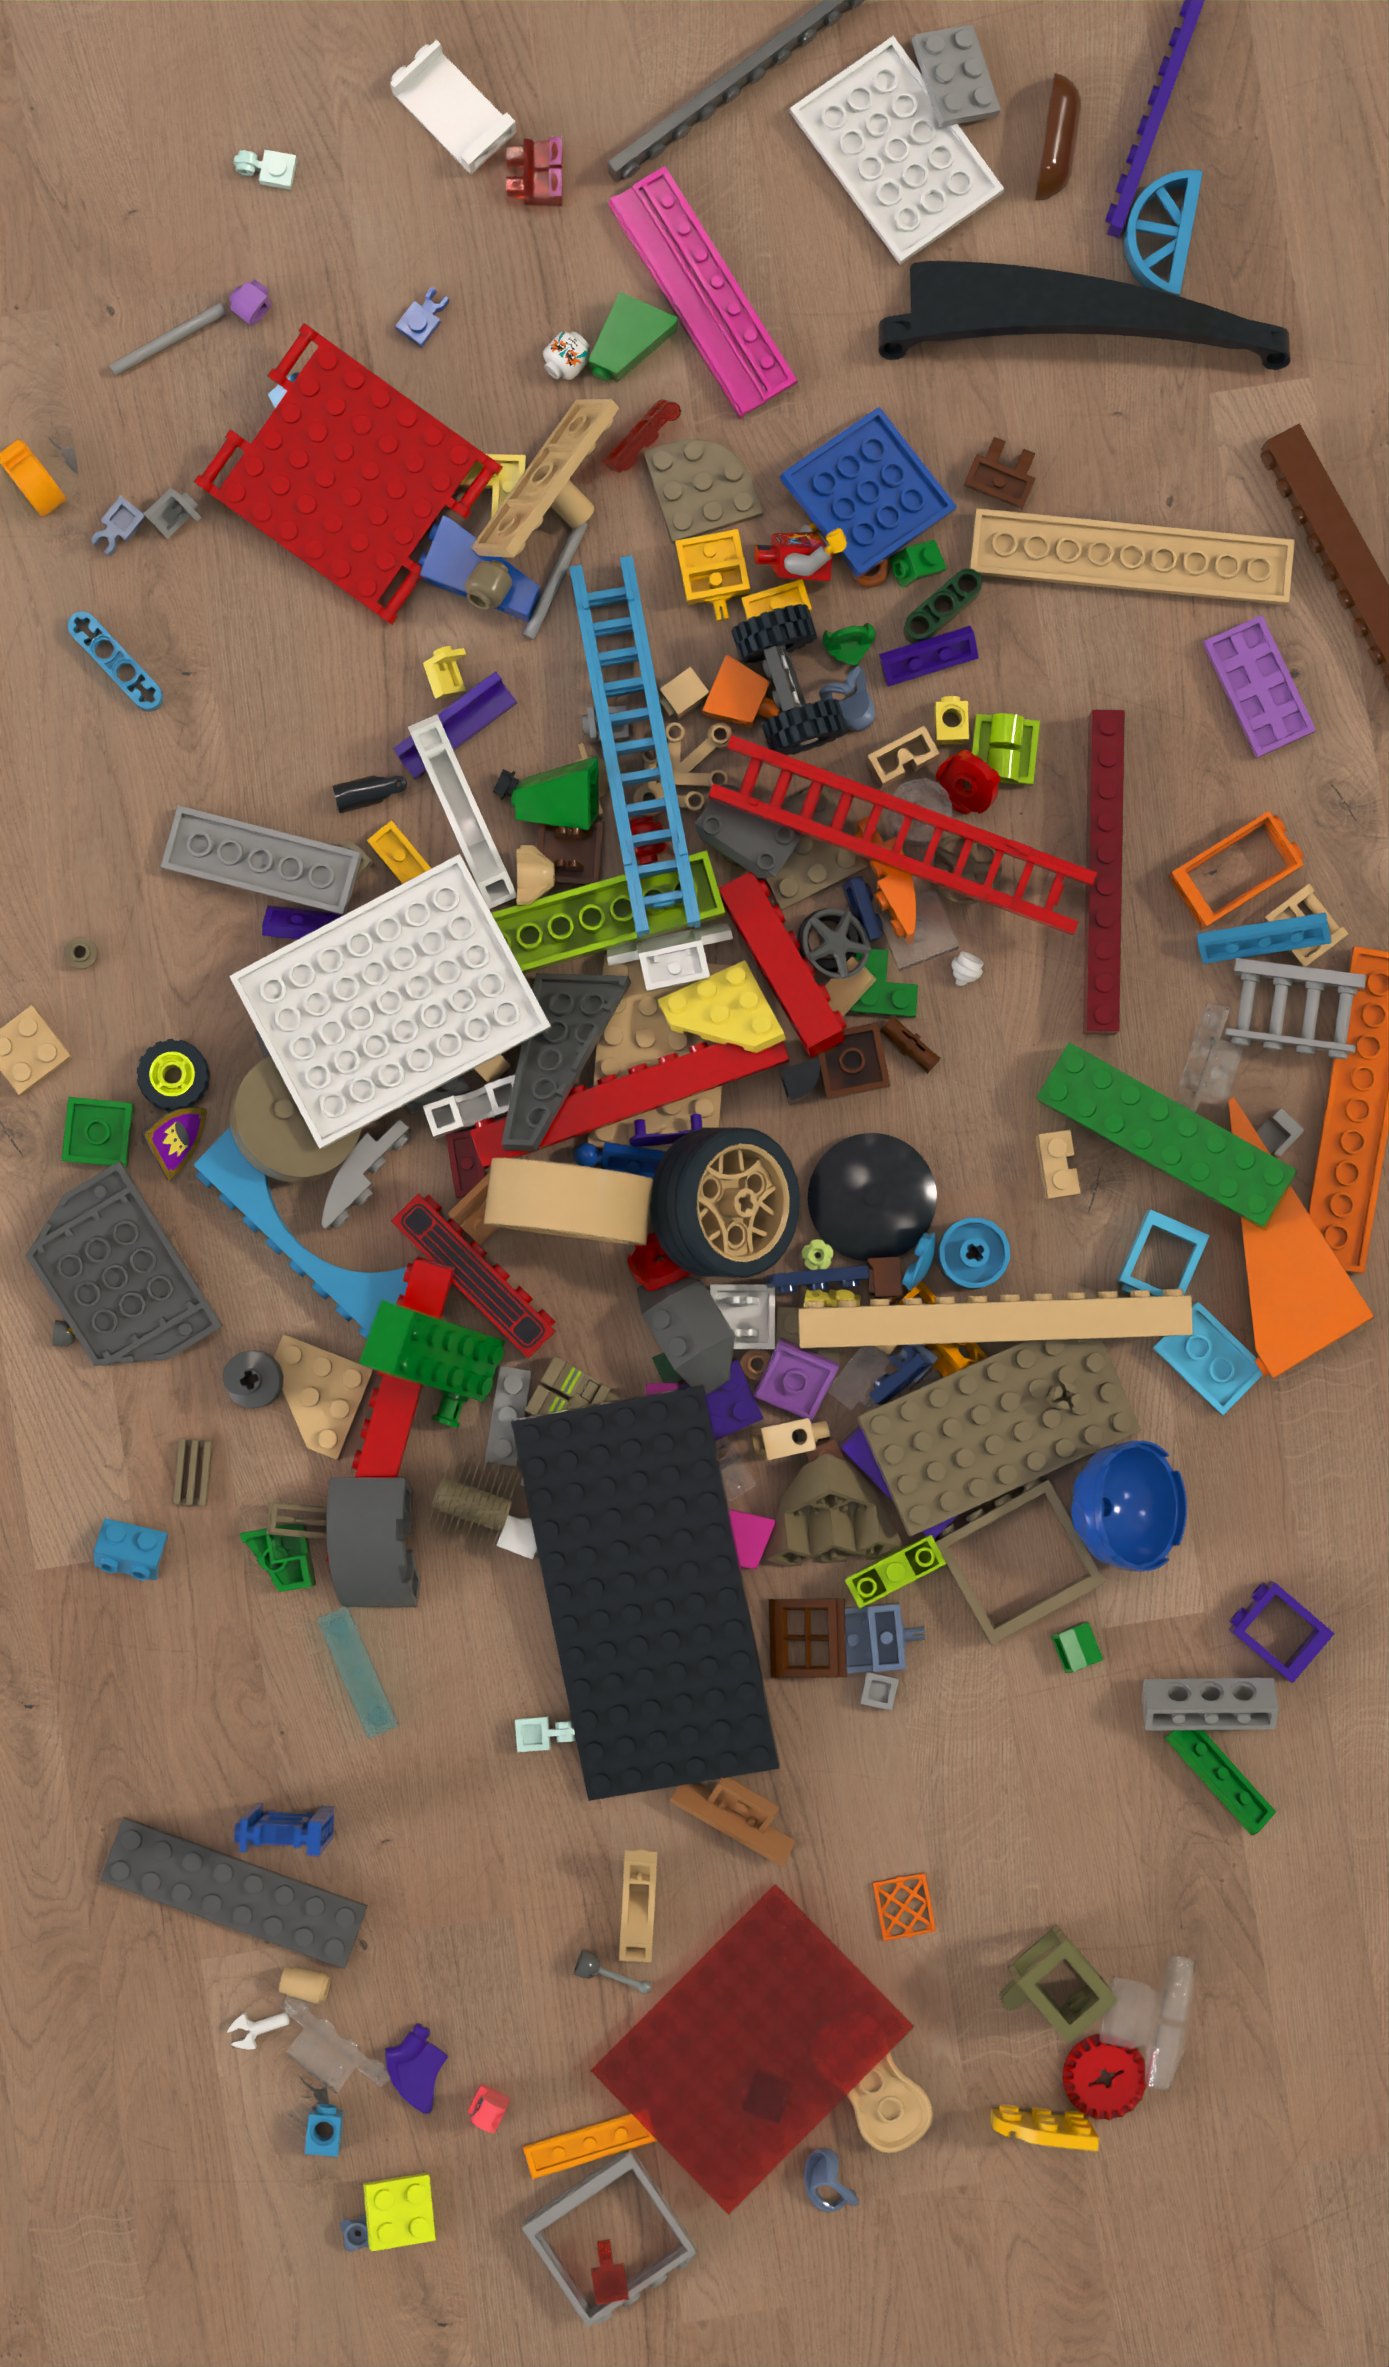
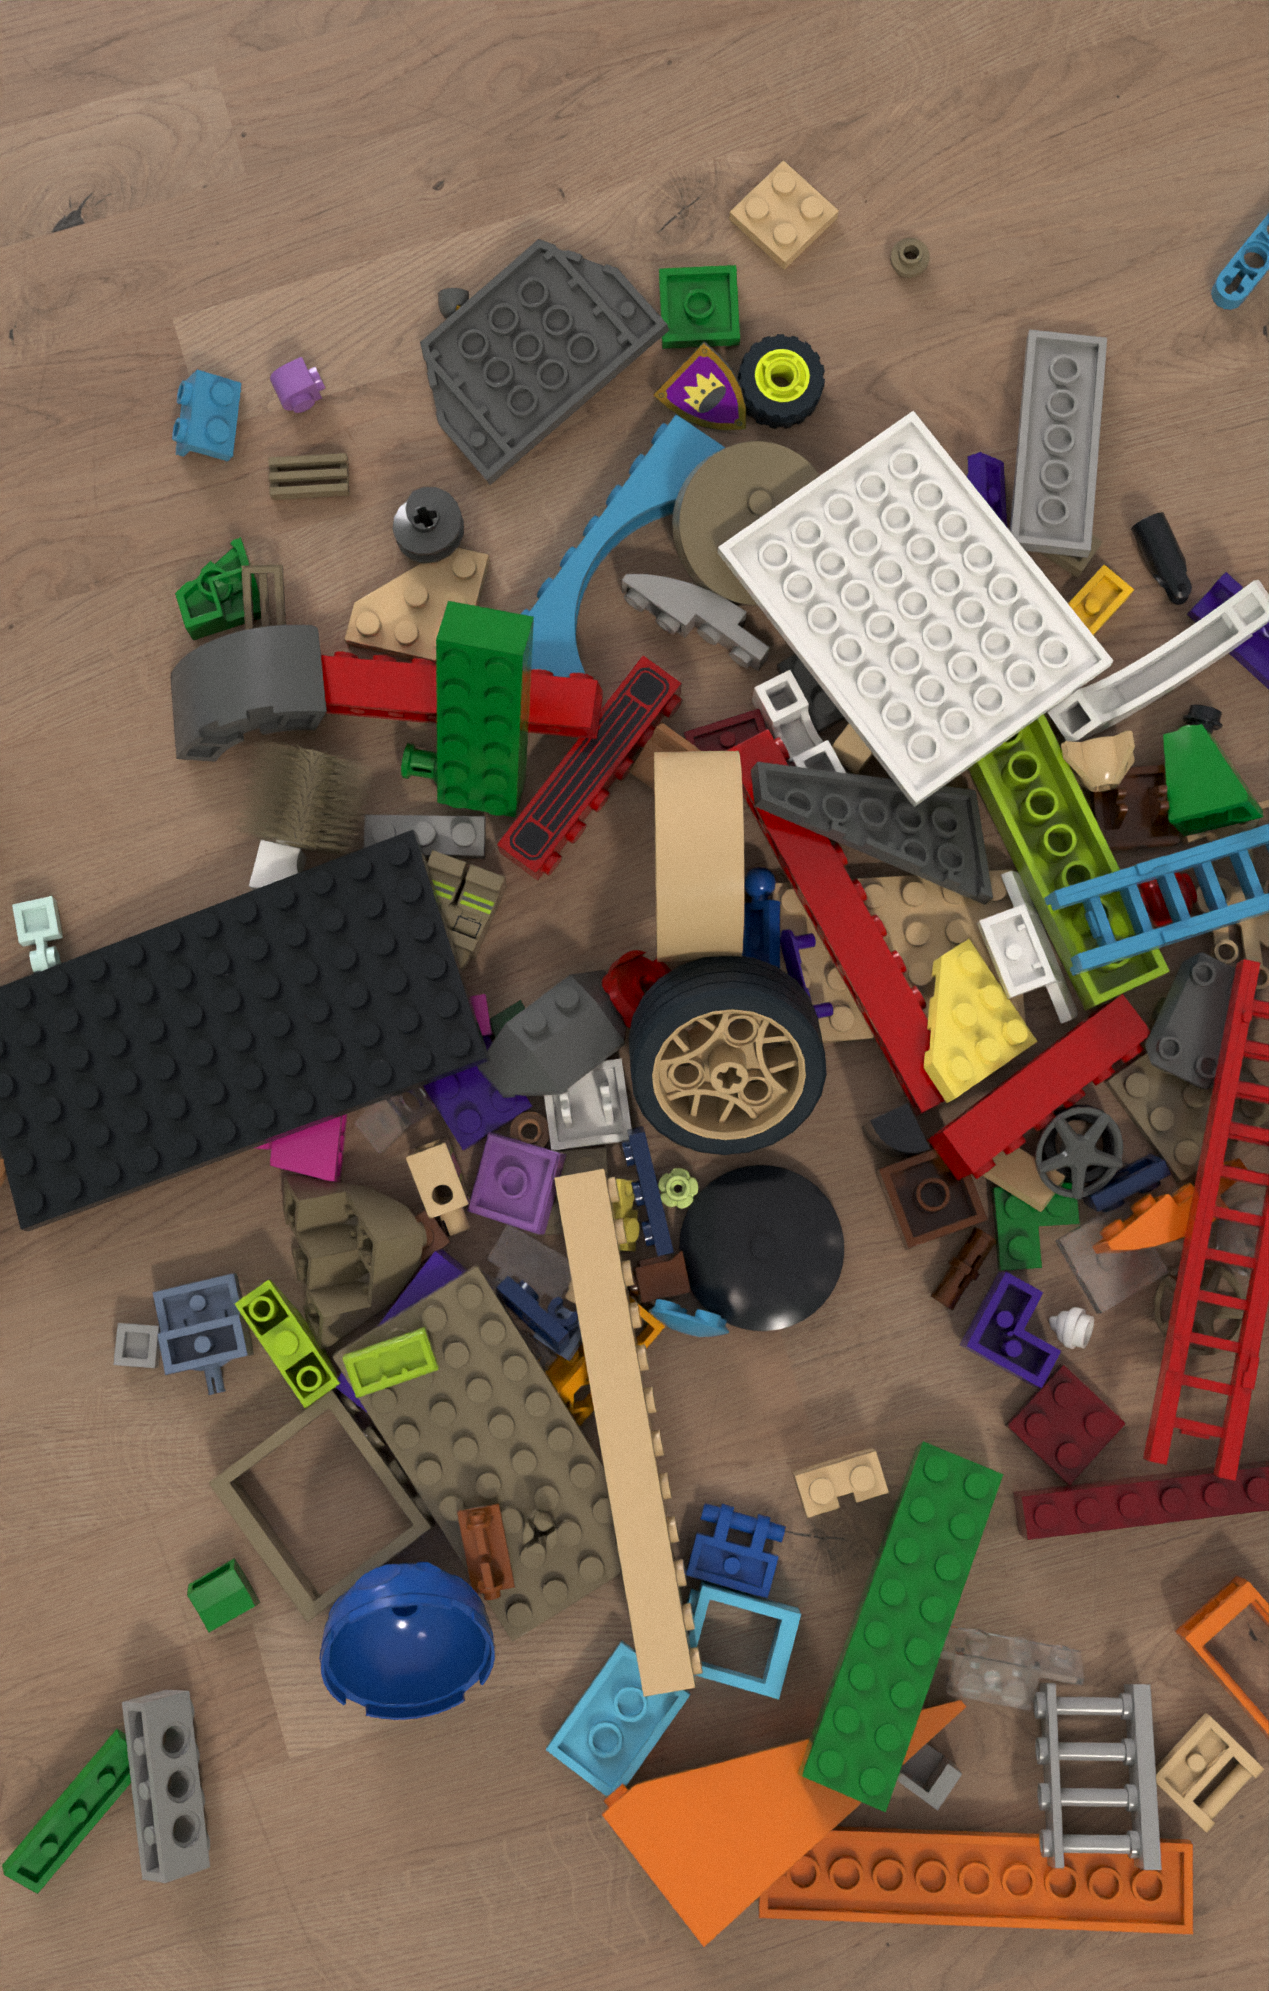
camera: 85 degrees right, 5 degrees down
(116, 1471) = (297, 385): none -> medium lavender plate
(358, 1672) = (90, 701): clear light blue plate -> none
(836, 1638) = (197, 1279): reddish brown piece -> none
(922, 1490) = (390, 1362): none -> lime plate
(963, 1026) = (1000, 1335): none -> dark purple brick
(991, 1247) = (714, 1412): dark azure wheel -> none
(1038, 986) = (1065, 1424): none -> dark red plate
(1071, 1438) = (486, 1550): none -> dark orange hinge
(1107, 1253) = (732, 1563): none -> blue plate
(1264, 938) = (1183, 1720): dark azure plate -> none
(1307, 1650) = (250, 1905): dark purple window -> none

